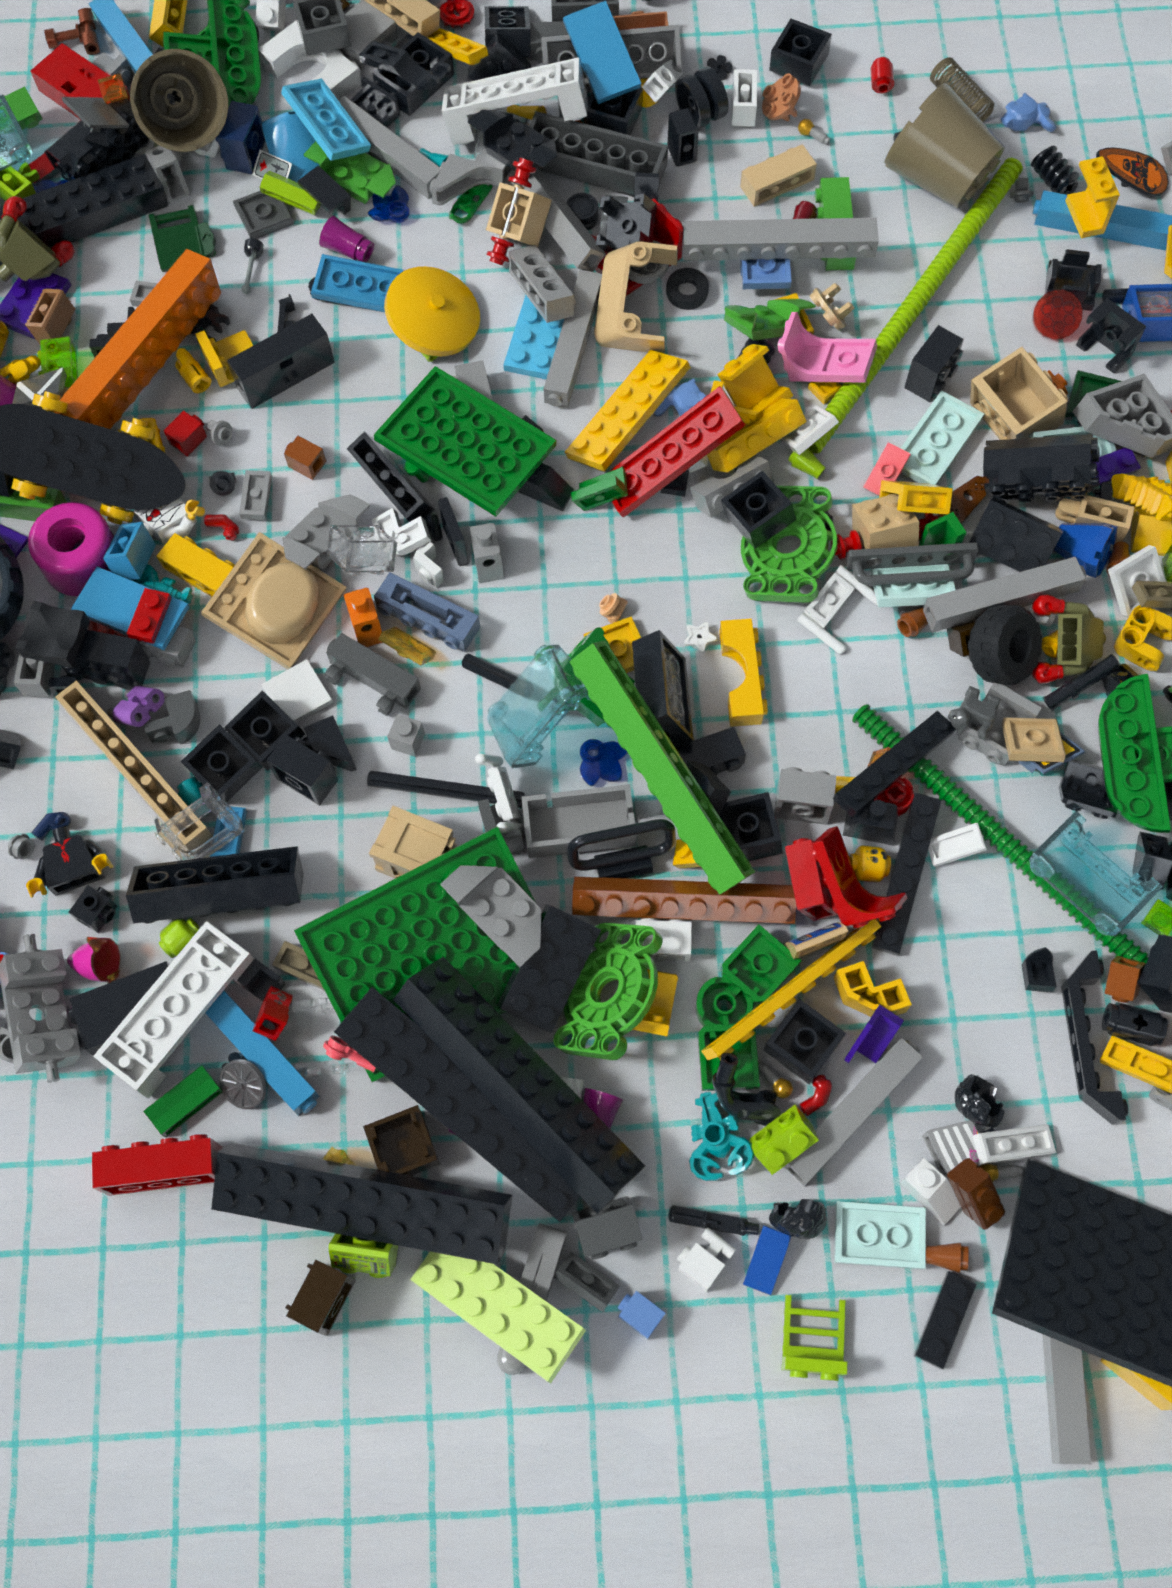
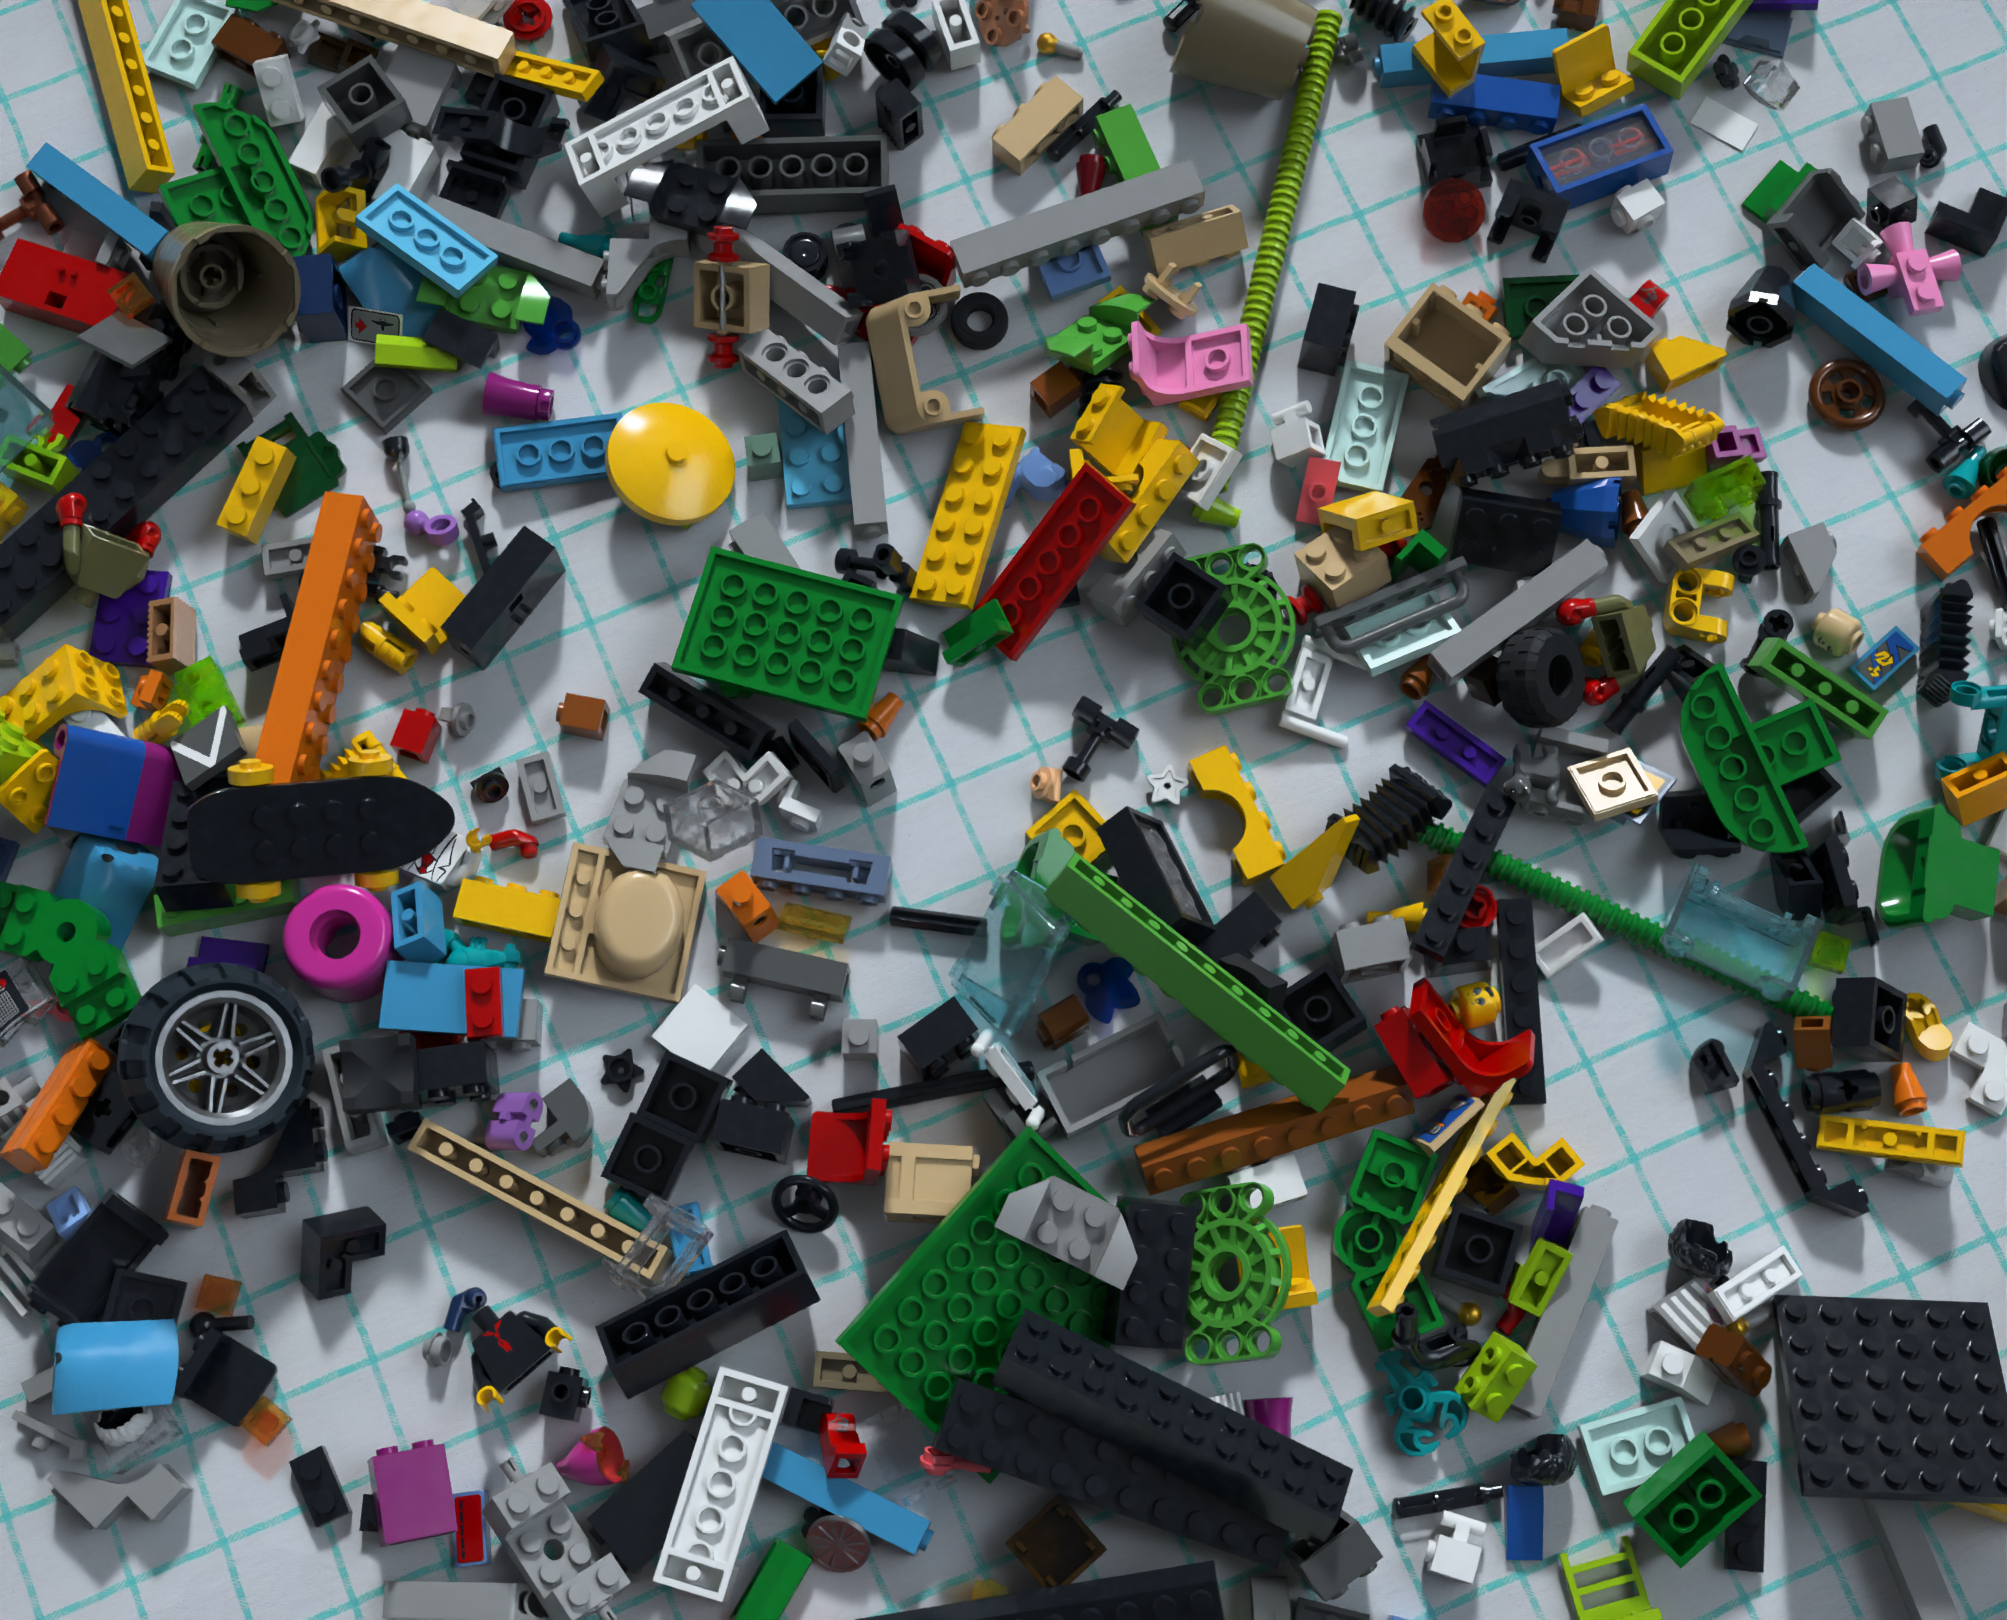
camera: 20 degrees left, 5 degrees up
(22, 347) = (152, 691): none -> orange bracket
(147, 243) = (256, 490): none -> yellow brick
(226, 696) = (630, 1072): none -> black plate
(259, 308) = (439, 529): none -> medium lavender plate
(271, 100) = (336, 222): none -> yellow window
(303, 67) = (361, 171): none -> black bar
(325, 830) = (807, 1201): none -> black piece
(366, 804) = (850, 1145): none -> red bracket
(457, 749) = (939, 1040): none -> black brick
(499, 328) = (763, 456): none -> sand green brick
(511, 523) = (881, 716): none -> orange cone
(553, 421) = (884, 563): none -> black bar
(555, 770) = (1062, 1023): none -> reddish brown brick
(665, 582) = (1101, 729): none -> black bar
(723, 346) = (1056, 388): none -> dark orange brick
(786, 722) = (1315, 867): none -> yellow slope
(806, 188) = (1082, 127): none -> black piece
(829, 997) = (1488, 1188): none -> dark brown slope
(845, 1076) = (1537, 1279): none -> lime slope
(852, 708) = (1392, 817): none -> black piece
(863, 279) = (1196, 239): none -> tan brick
(884, 428) = (1297, 438): none -> white brick
(904, 1288) = (1691, 1499): none -> green brick
(924, 675) = (1455, 744): none -> dark purple plate
(1119, 255) = (1500, 104): none -> blue brick

